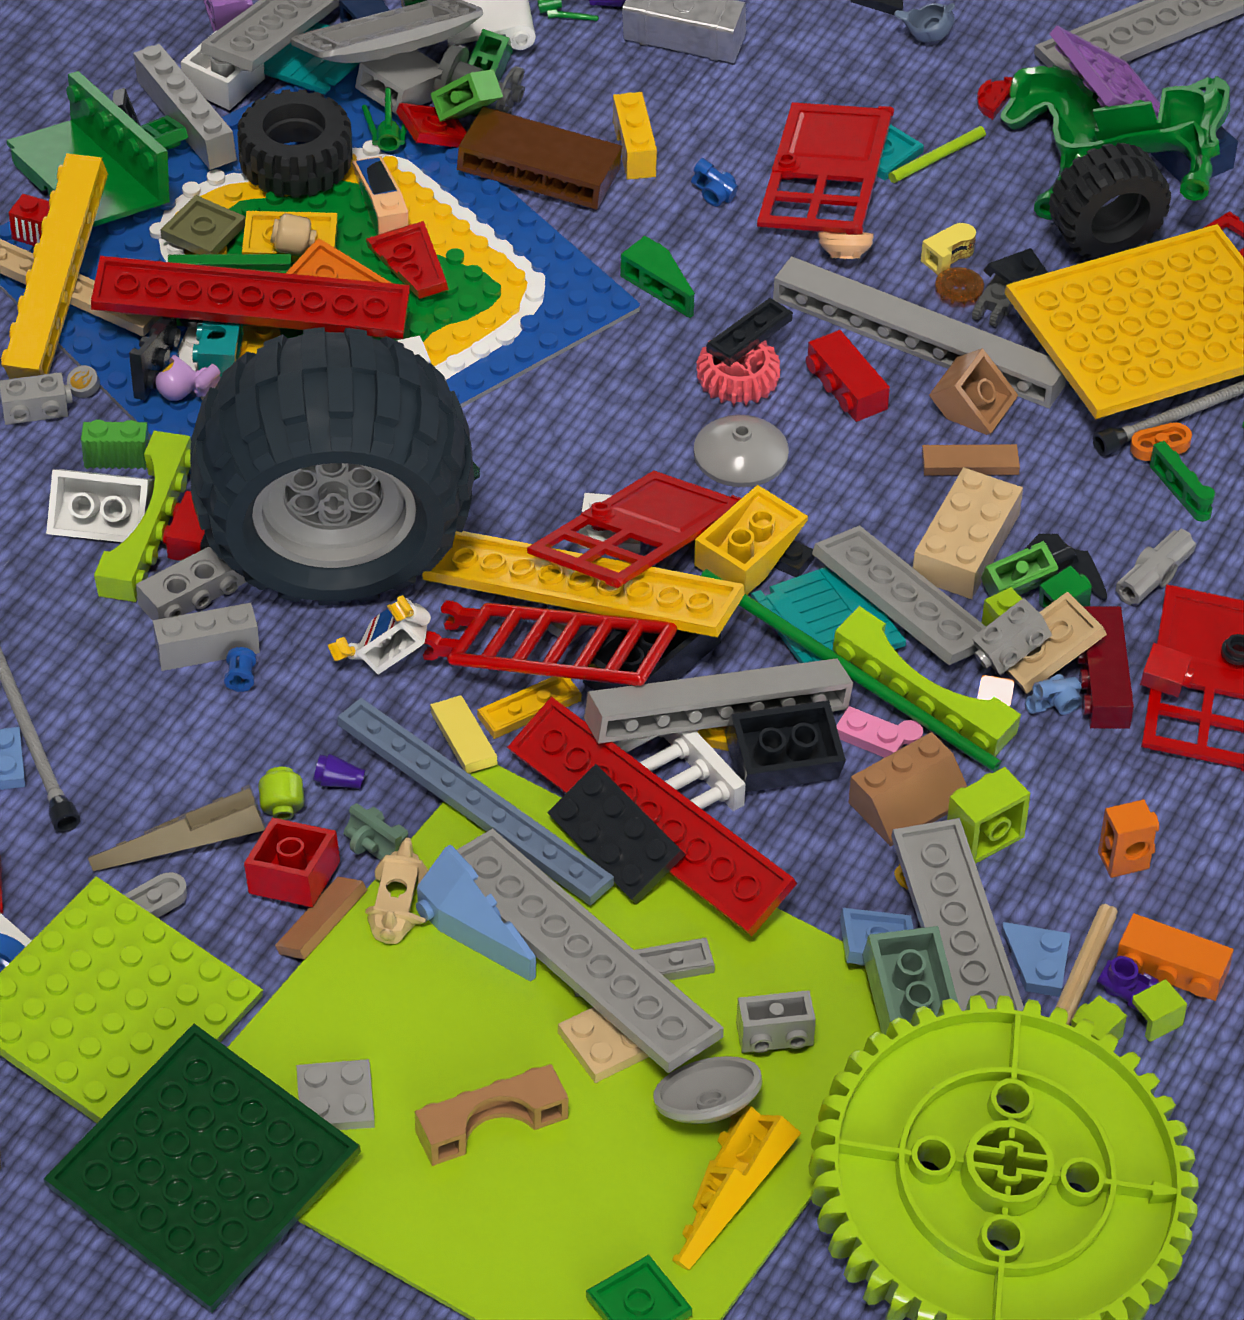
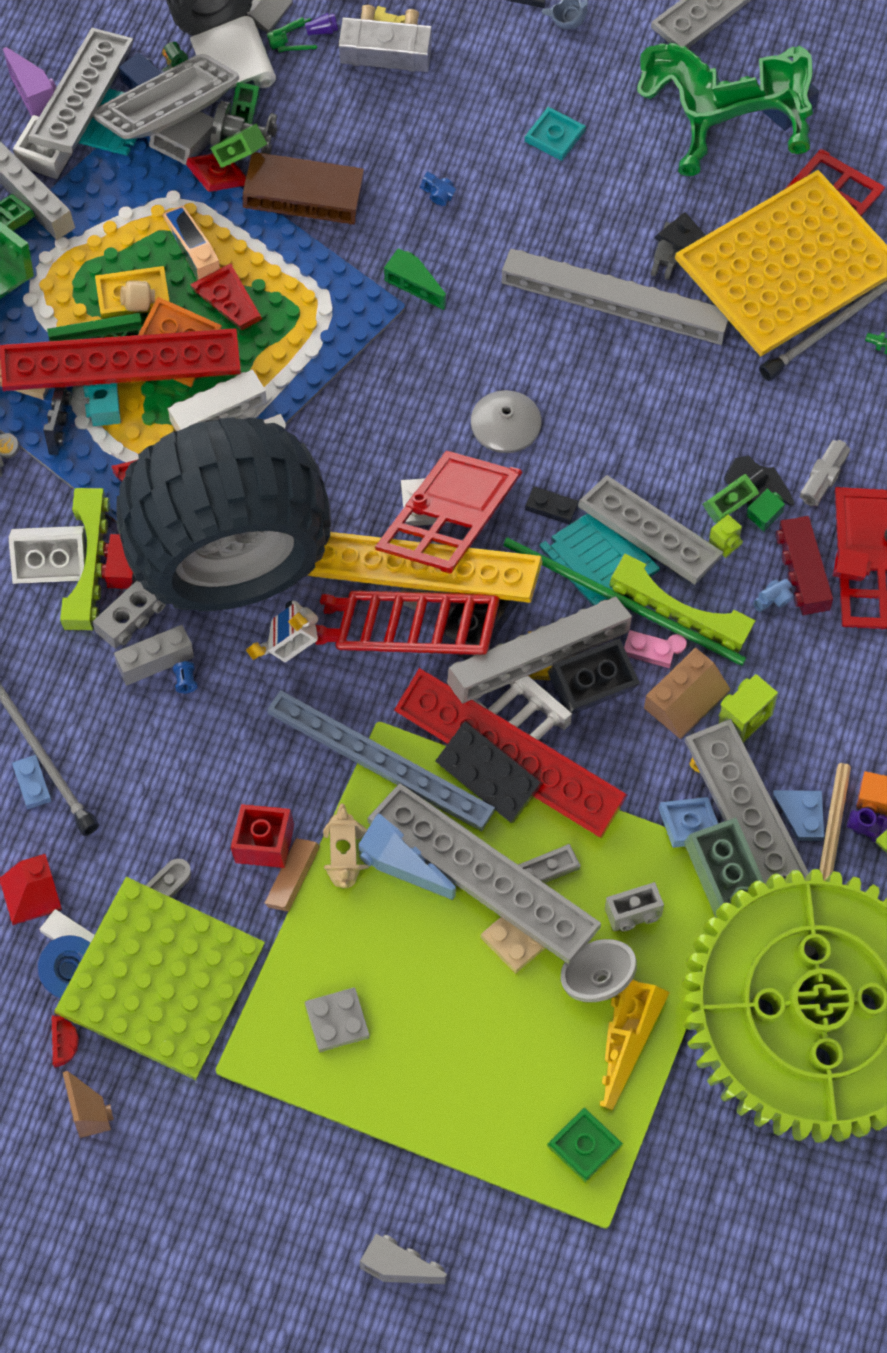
camera: 10 degrees left, 15 degrees up
(114, 444) = (46, 499): bright green brick -> none
(180, 379) = (81, 436): lavender piece -> none
(202, 1167) = (258, 1095): dark green plate -> none
(203, 226) = (65, 294): olive plate -> none
(211, 823) = (182, 817): dark tan wedge -> none
(281, 792) = (239, 777): lime head -> none
(301, 167) = (111, 186): black tyre -> none
(338, 773) = (276, 752): dark purple cone -> none
(371, 833) = (312, 800): sand green hips -> none
(388, 134) = (185, 186): green plant -> none
(463, 734) = (359, 703): light yellow tile -> none
(519, 708) = (397, 671): yellow tile -> none
(528, 1097) = (477, 997): medium nougat arch -> none
(636, 135) = (373, 160): yellow arch -> none
(744, 380) = (489, 360): coral gear -> none
(749, 331) = (494, 322): black tile -> none
(749, 538) = (531, 504): yellow slope -> none
(824, 146) = (517, 139): red door -> none
(845, 246) = (547, 226): light nougat piece -> none
(847, 375) = (571, 345): red brick -> none
(937, 154) = (596, 132): lime bar -> none
(948, 246) = (621, 216): light yellow leg -> none
(960, 278) = (634, 241): clear orange gear -> none
(967, 532) = (685, 468): tan brick -> none
(974, 392) = (666, 344): medium nougat slope -> none
(985, 459) = (674, 401): medium nougat tile -> none
(993, 96) = (627, 71): red tile -> none
(998, 687) = (731, 600): slope -> none
(1011, 637) = (736, 557): light grey brick -> none
(1072, 634) = (761, 555): tan plate -> none
(1097, 179) = (737, 165): black tyre -> none
(1103, 72) = (715, 49): medium lavender plate -> none
(1105, 1015) = (854, 862): lime brick -> none
(1128, 838) = (849, 710): orange brick -> none
(1174, 434) = (806, 363): orange plate -> none
(1182, 482) = (830, 396): green plate -> none

